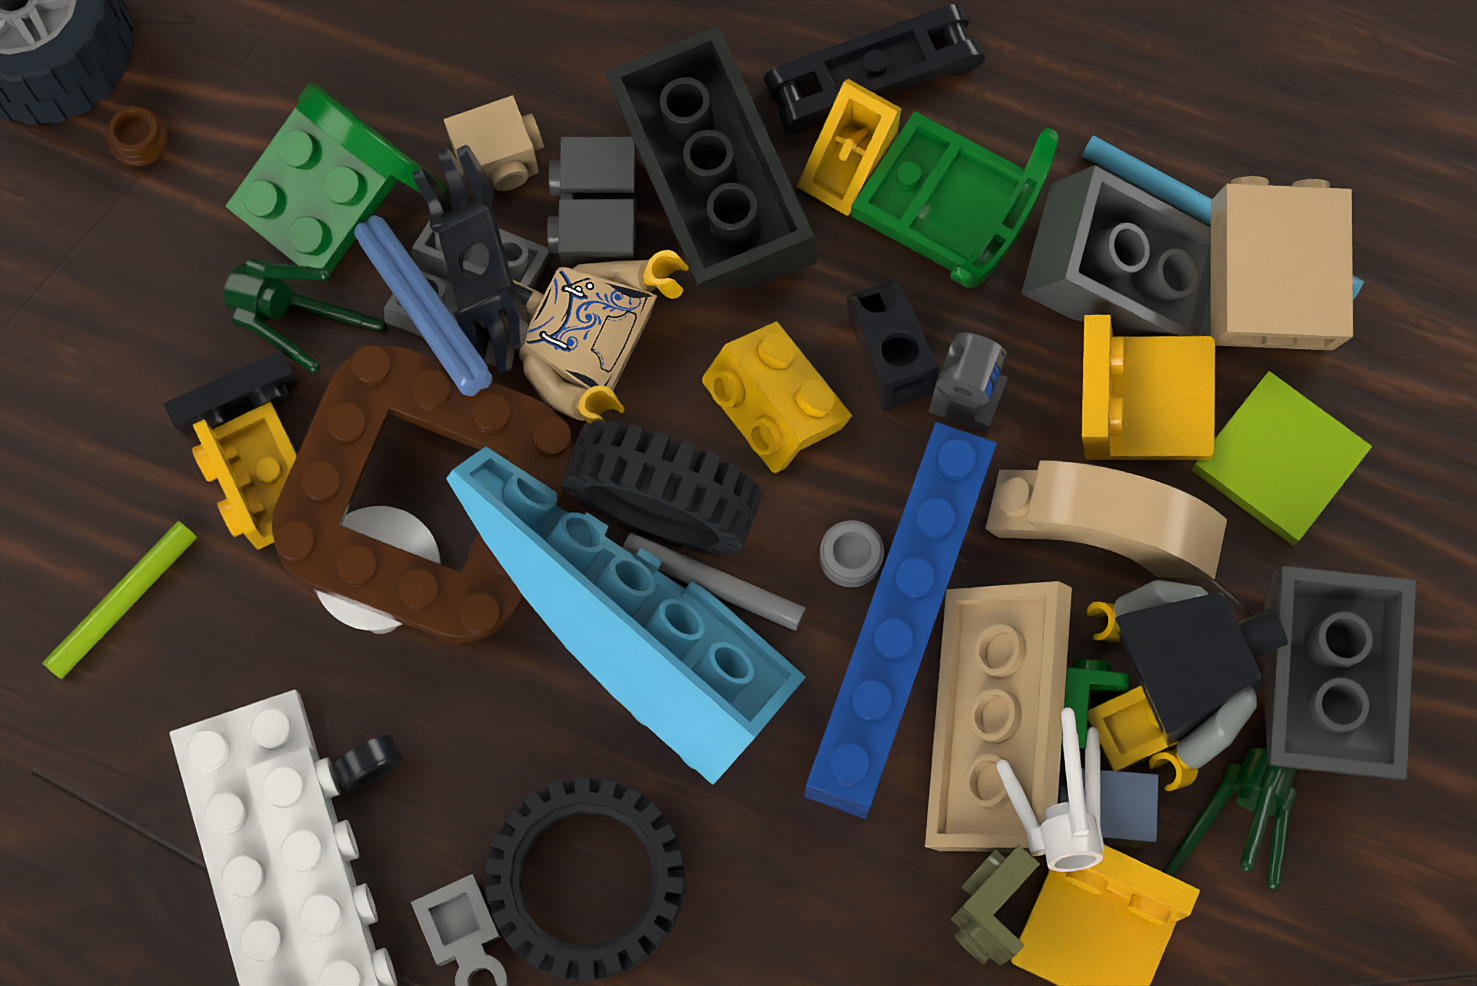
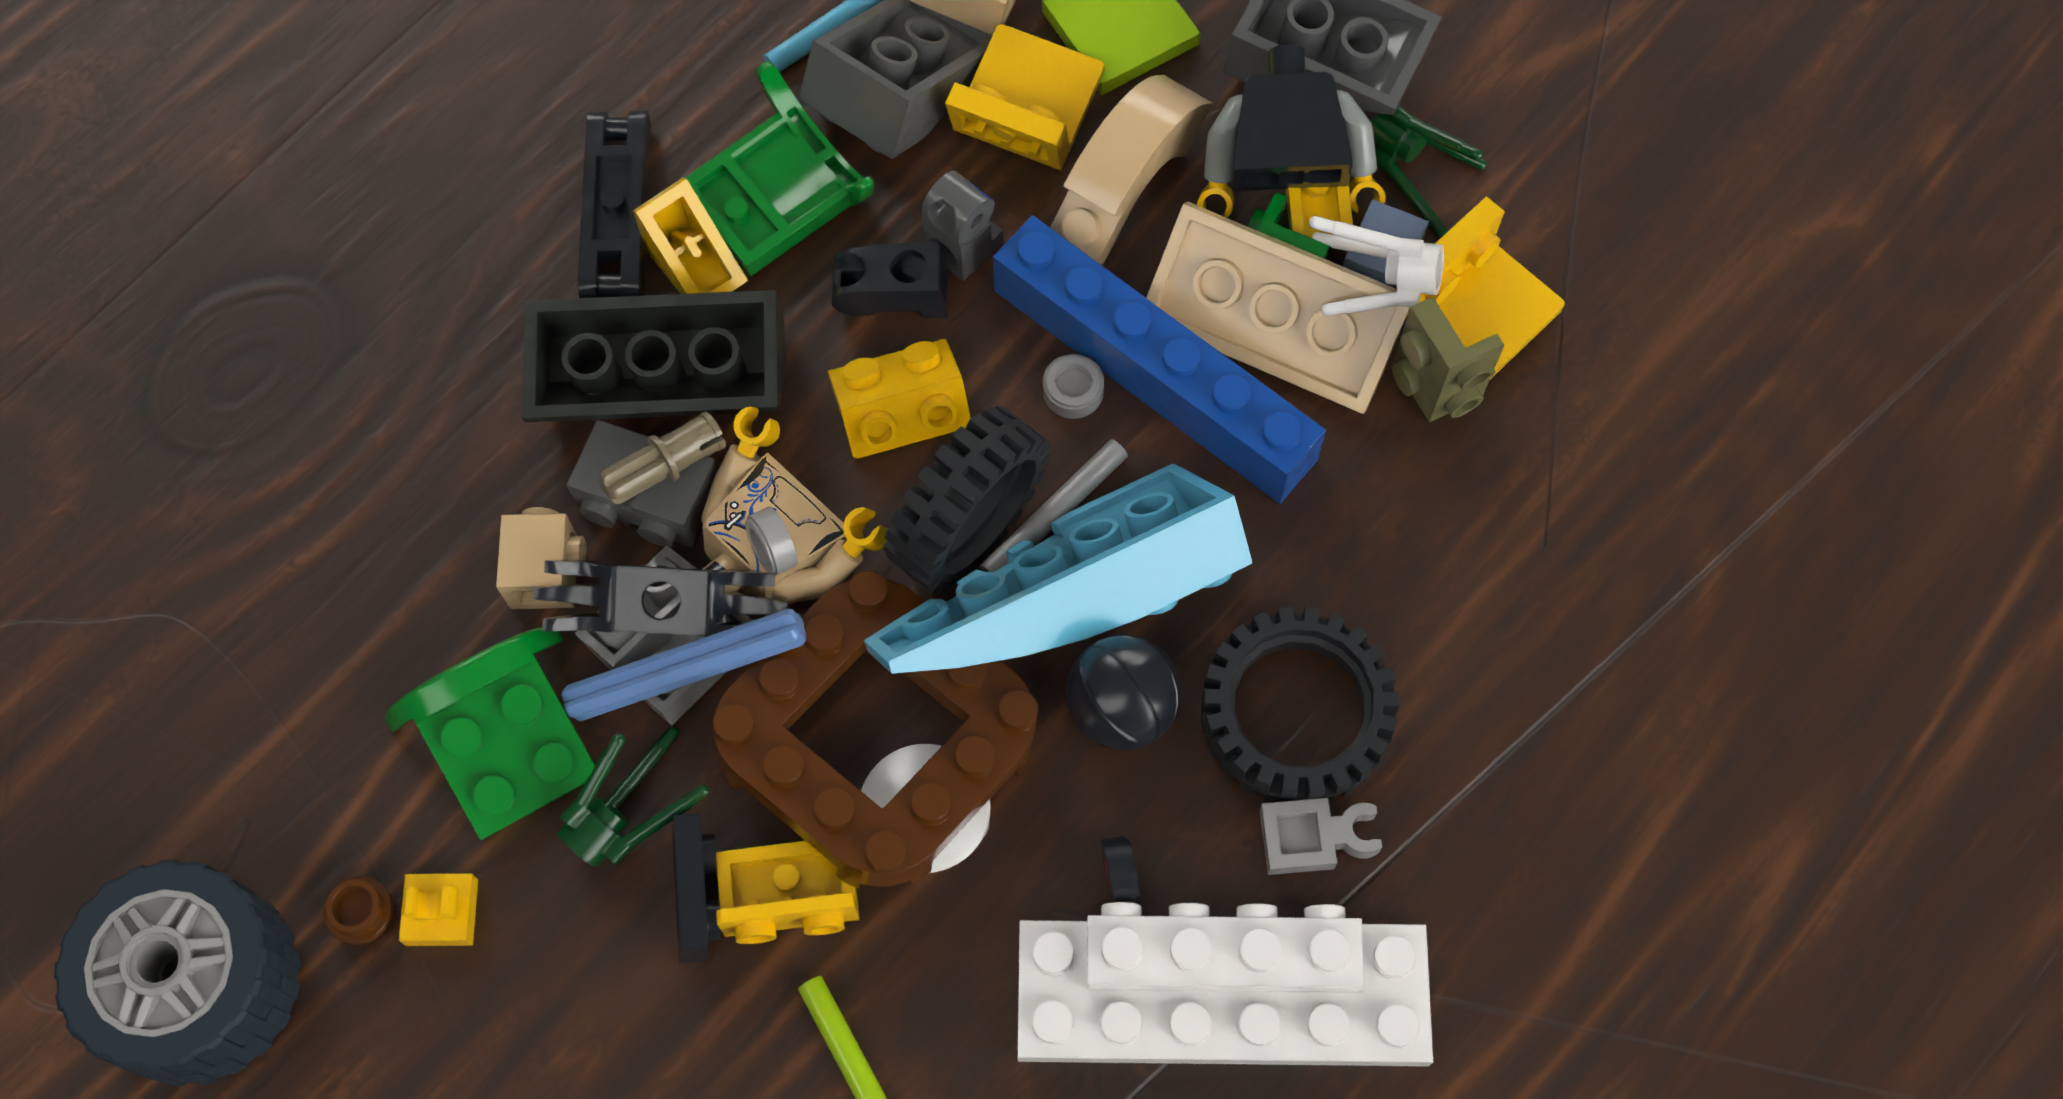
camera: 70 degrees left, 5 degrees down
(158, 199) = (438, 910): none -> yellow tile
(534, 704) = (1123, 692): none -> black piece
(551, 328) = (771, 541): none -> light grey tile
(606, 205) = (662, 458): none -> dark tan axle

